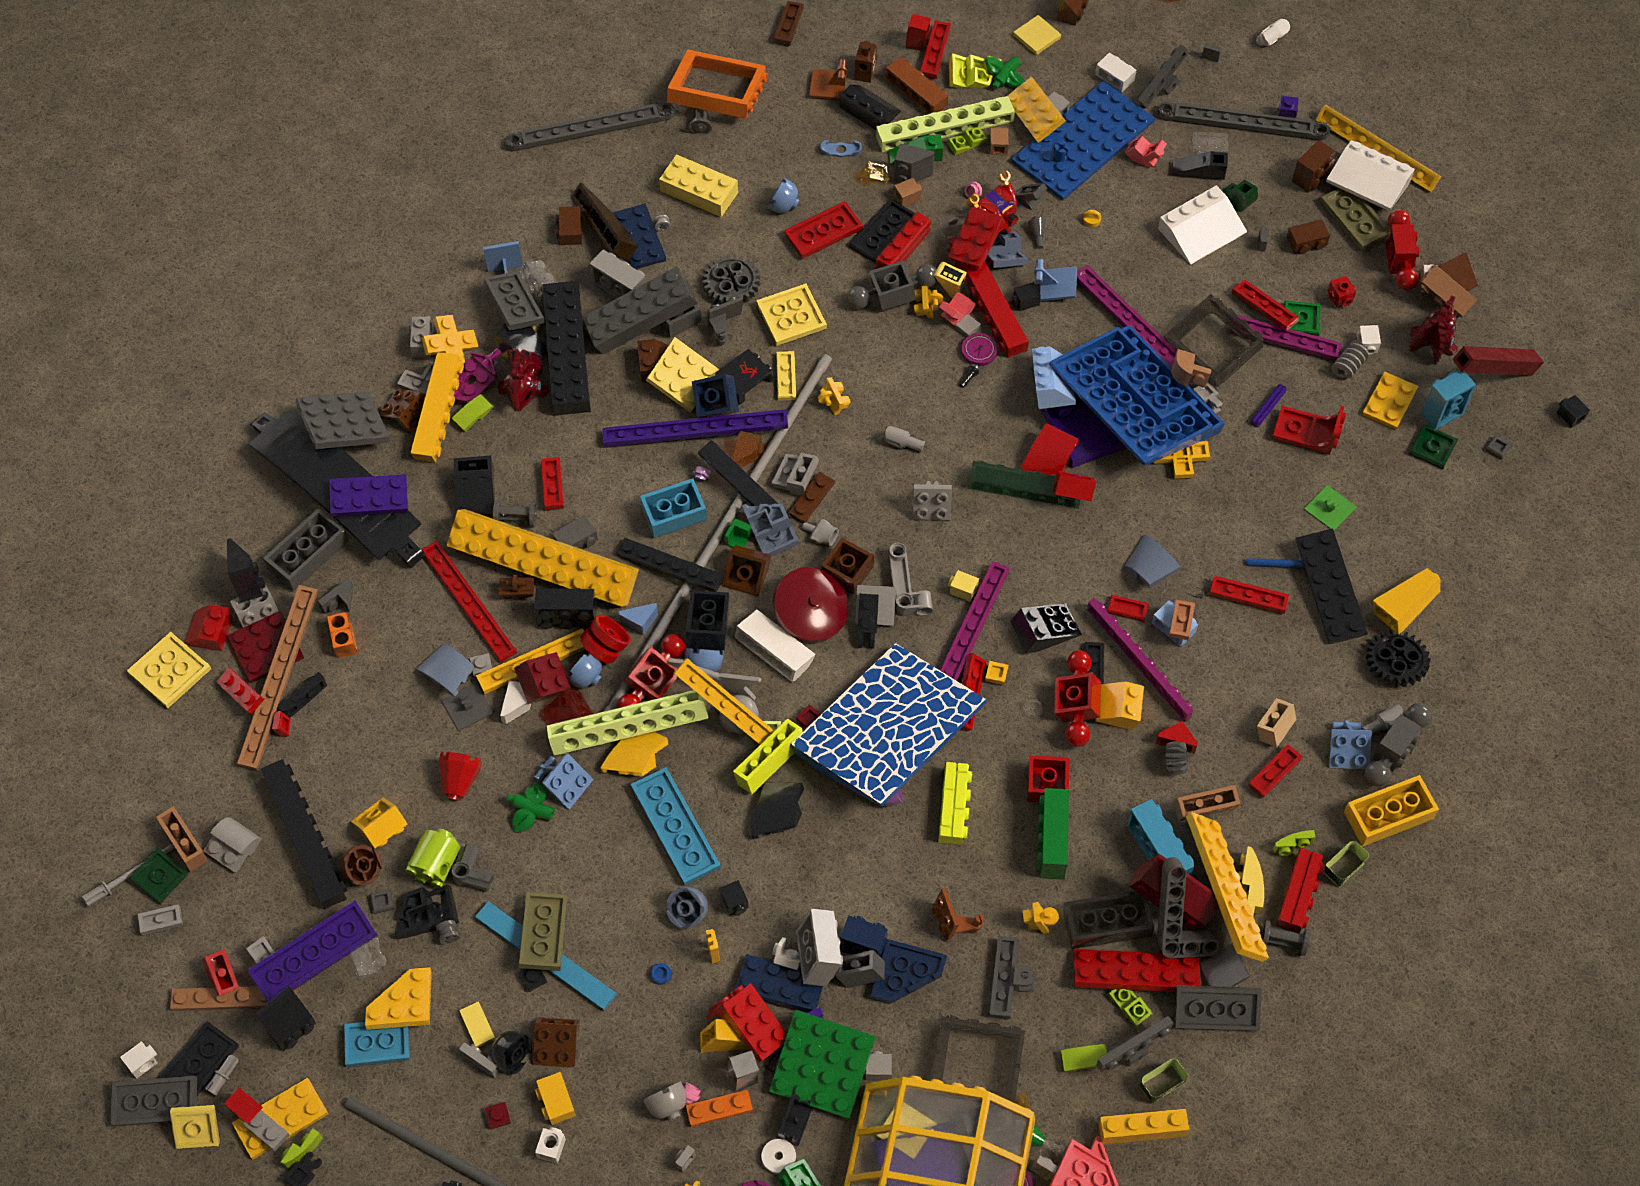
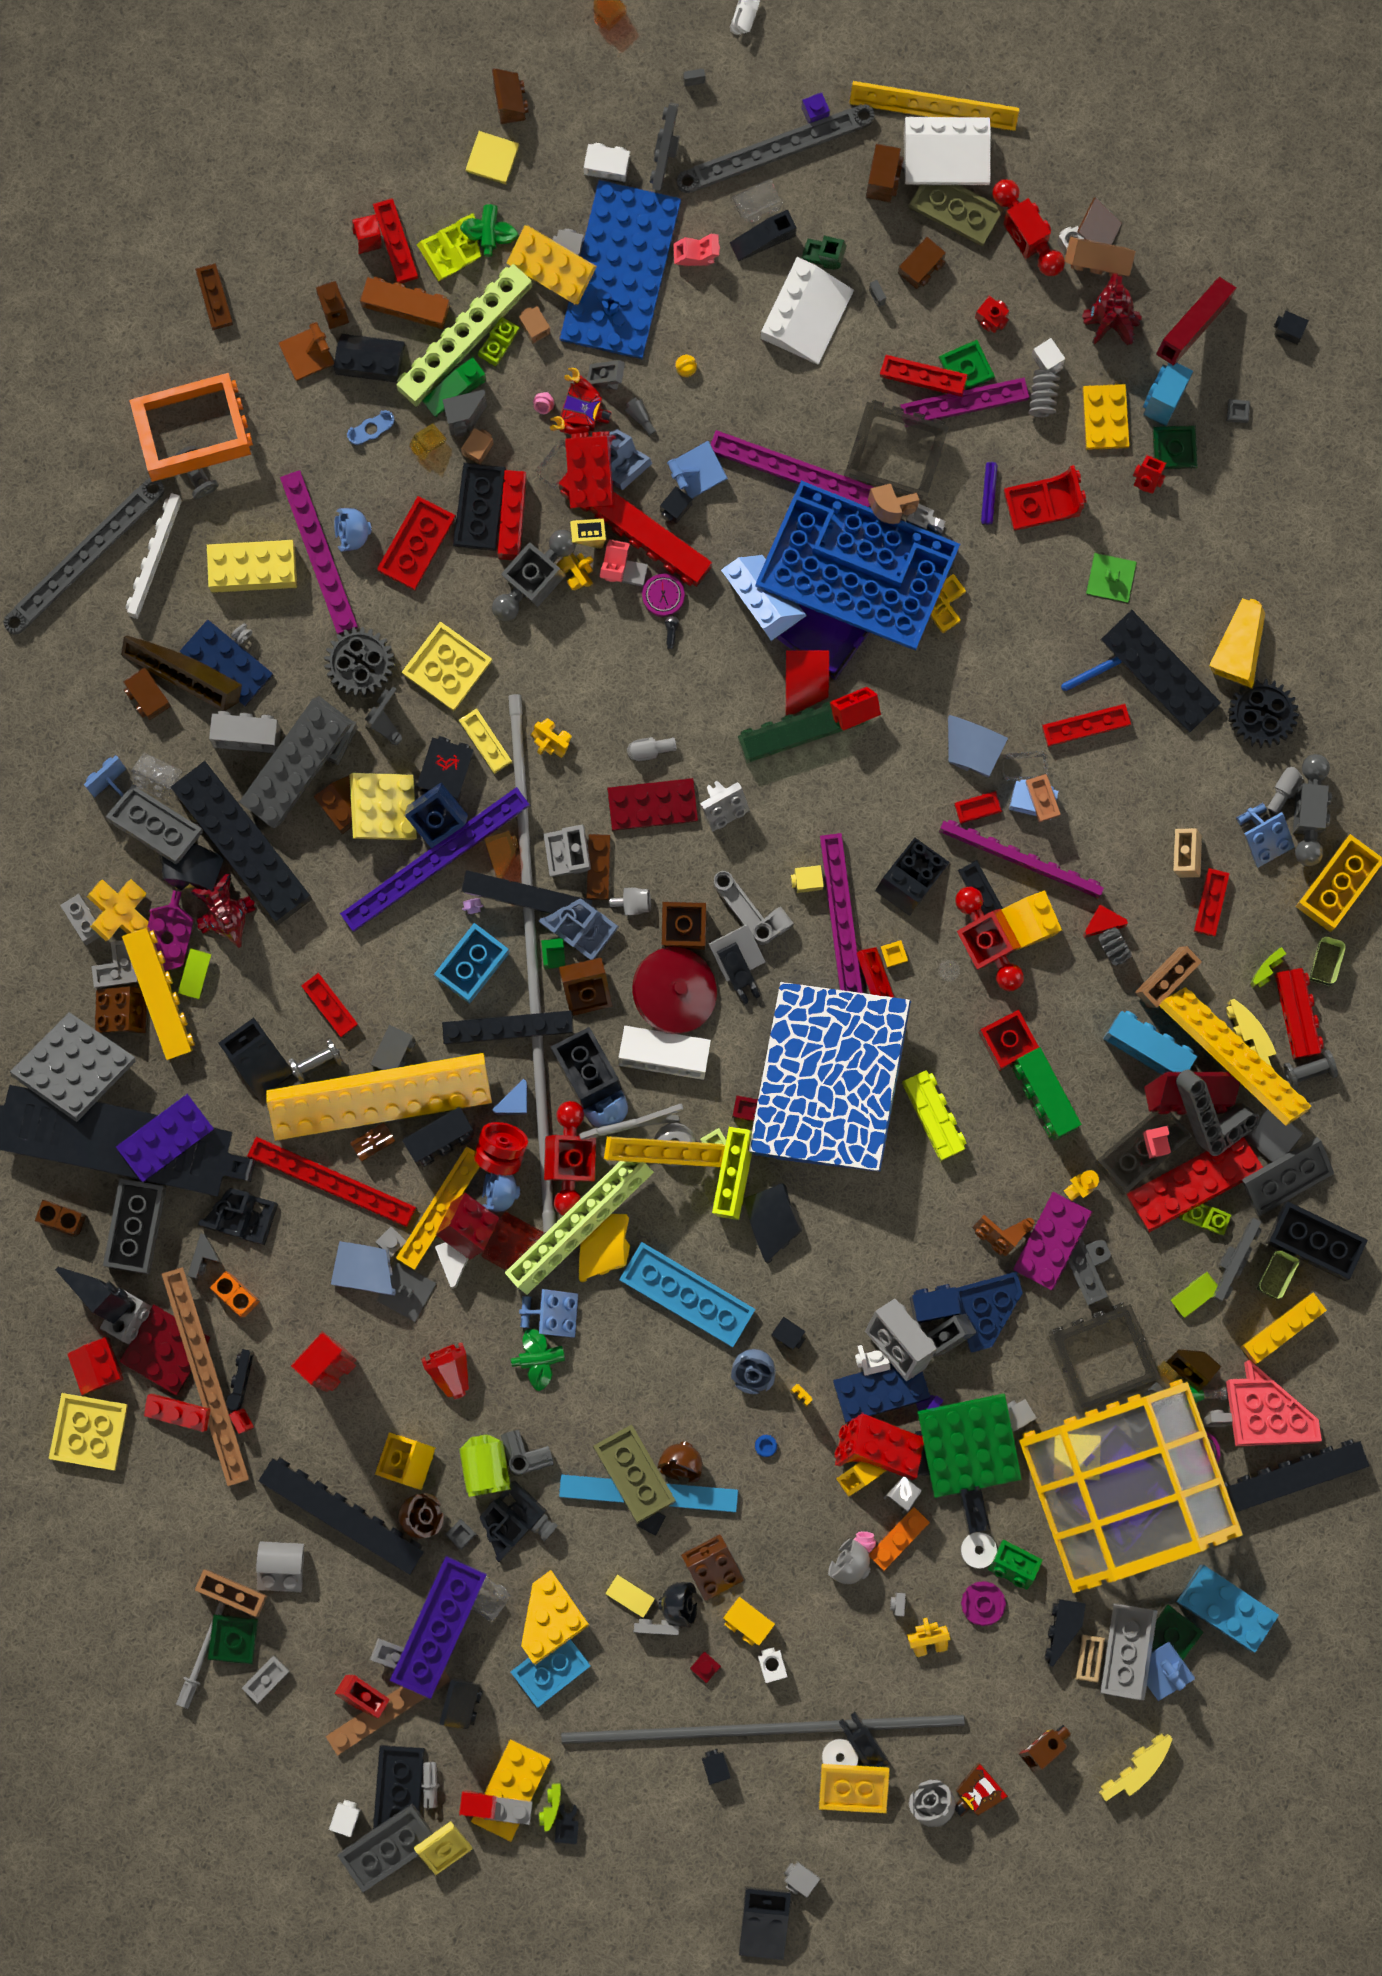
camera: 35 degrees left, 20 degrees up
(263, 529) = (56, 1222): none -> reddish brown piece
(362, 692) = (324, 1363): none -> red brick
(382, 587) = (234, 1216): none -> black slope
(584, 940) = (681, 1461): none -> reddish brown cylinder
(636, 148) = (156, 549): none -> white plate
(751, 202) = (318, 552): none -> magenta plate
(879, 478) = (652, 804): none -> dark red plate
(991, 947) = (1052, 1240): none -> magenta plate
(1049, 1112) = (1194, 1367): none -> dark brown slope
(1122, 913) = (1157, 1142): none -> coral panel
(1213, 1072) = (1316, 1241): none -> black brick
(1401, 450) = (1149, 474): none -> red brick

